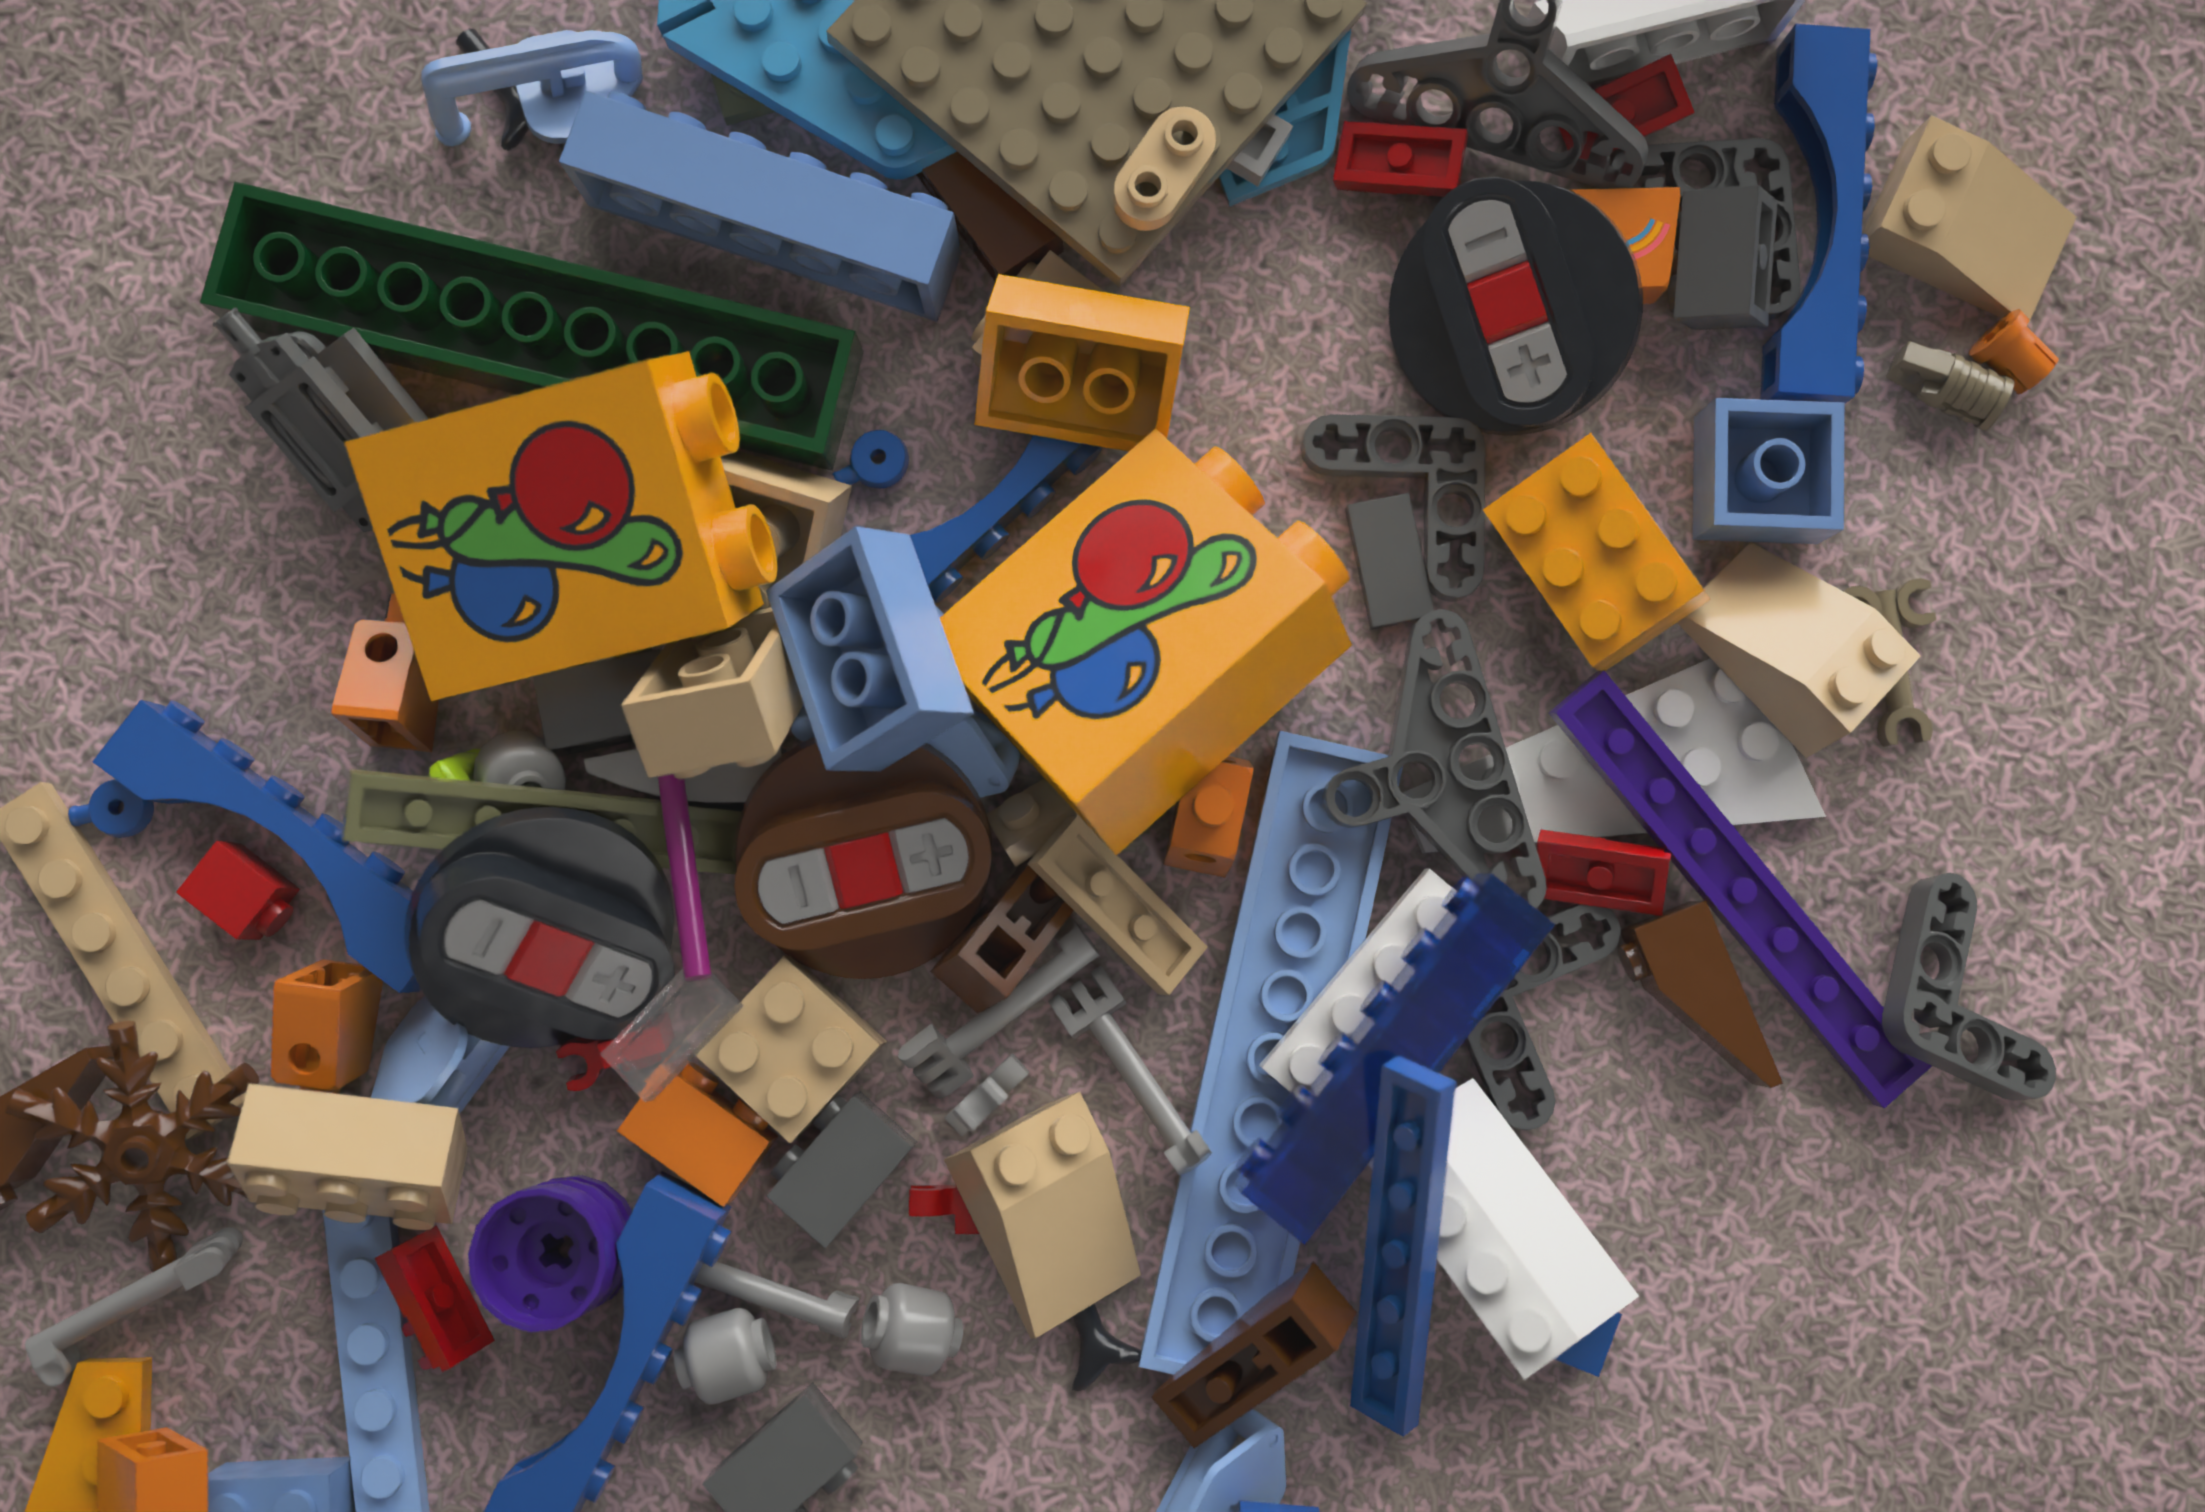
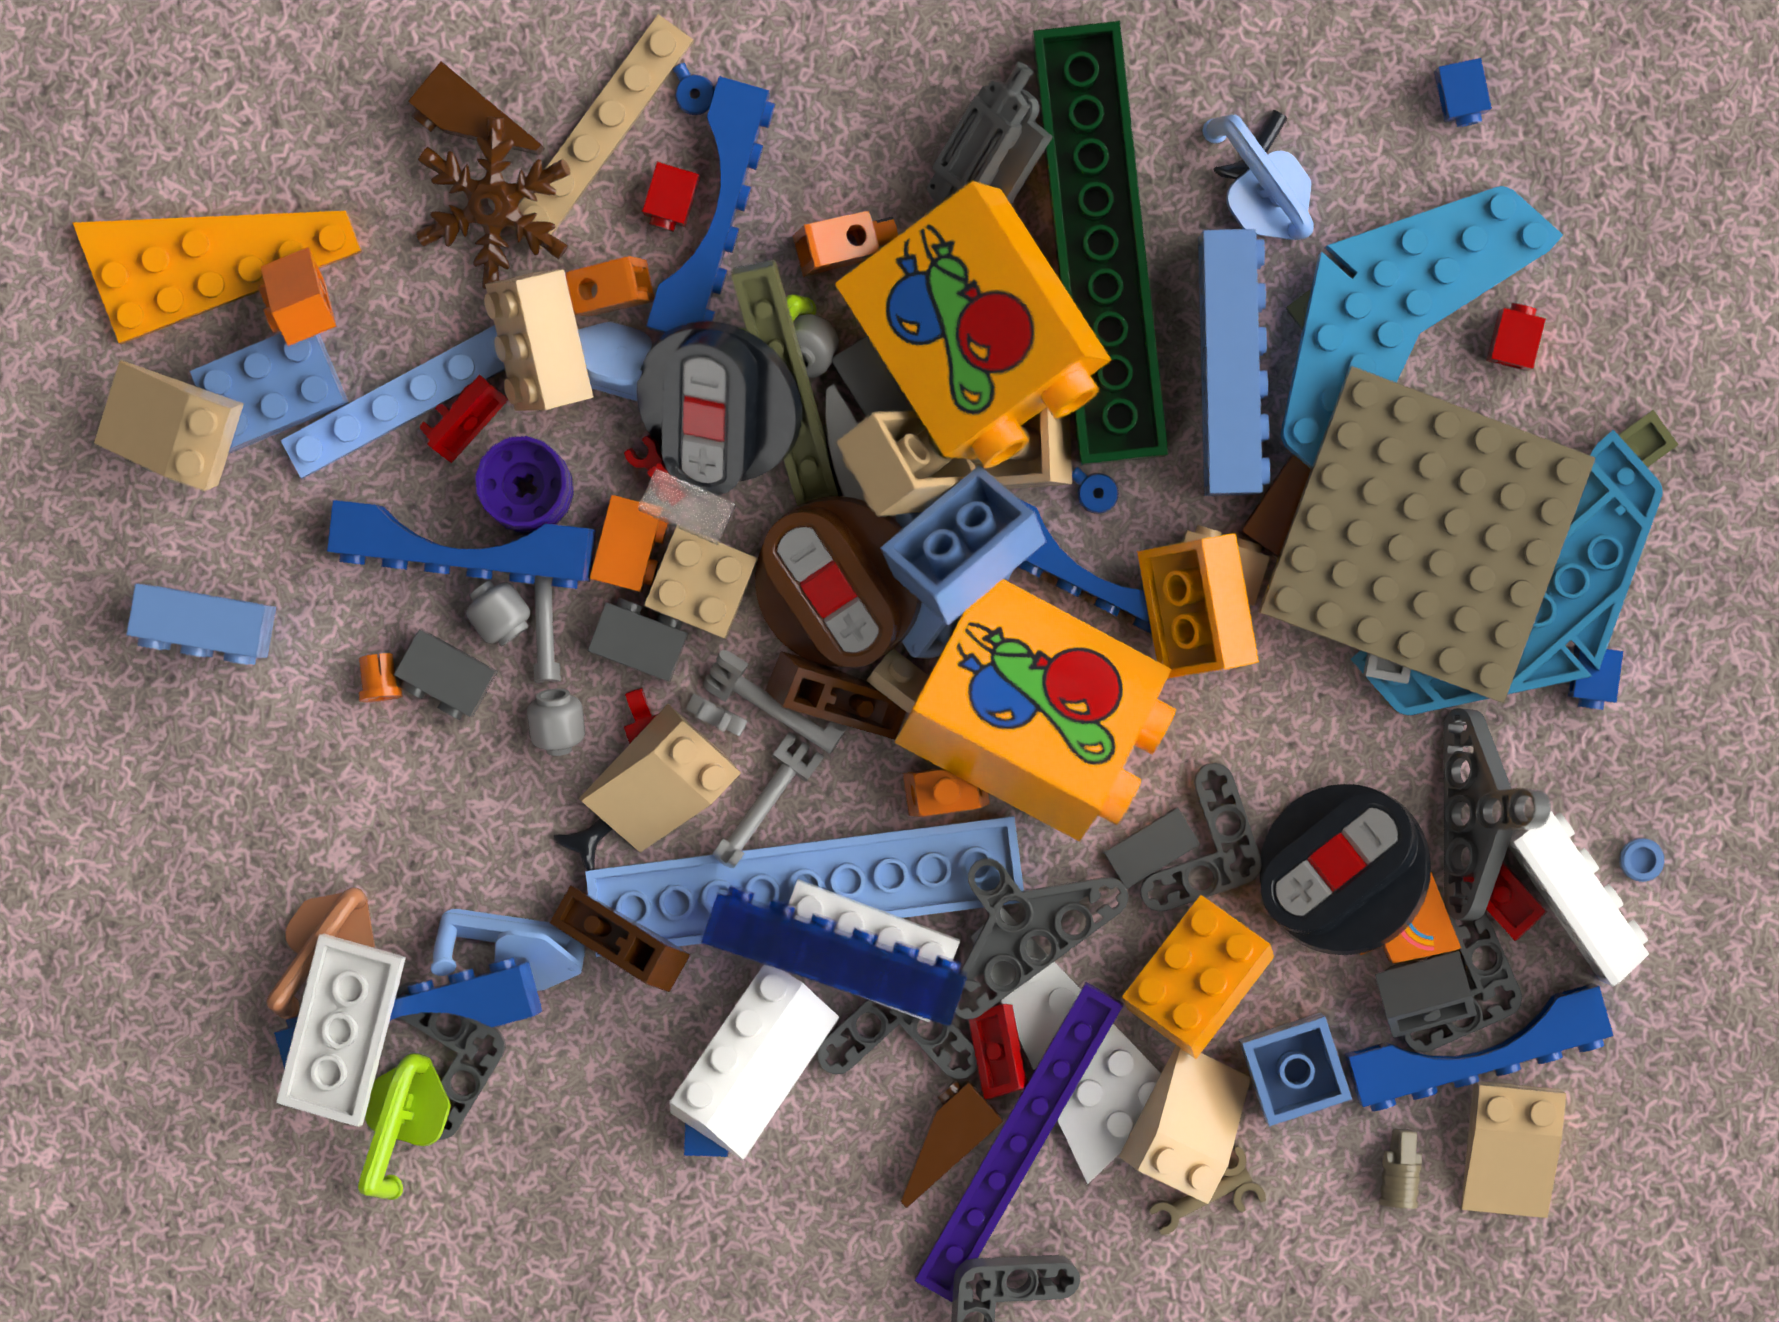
camera: 75 degrees right, 5 degrees up
(54, 1349) = (433, 264): light grey hinge -> none
(684, 878) = (782, 480): magenta bar -> none
(1118, 905) = (865, 754): tan plate -> none
(1166, 165) = (1338, 614): tan plate -> none
(1399, 158) = (1418, 760): red plate -> none
(1402, 1243) = (719, 1002): blue plate -> none
(2015, 352) = (1437, 1205): orange bush -> none

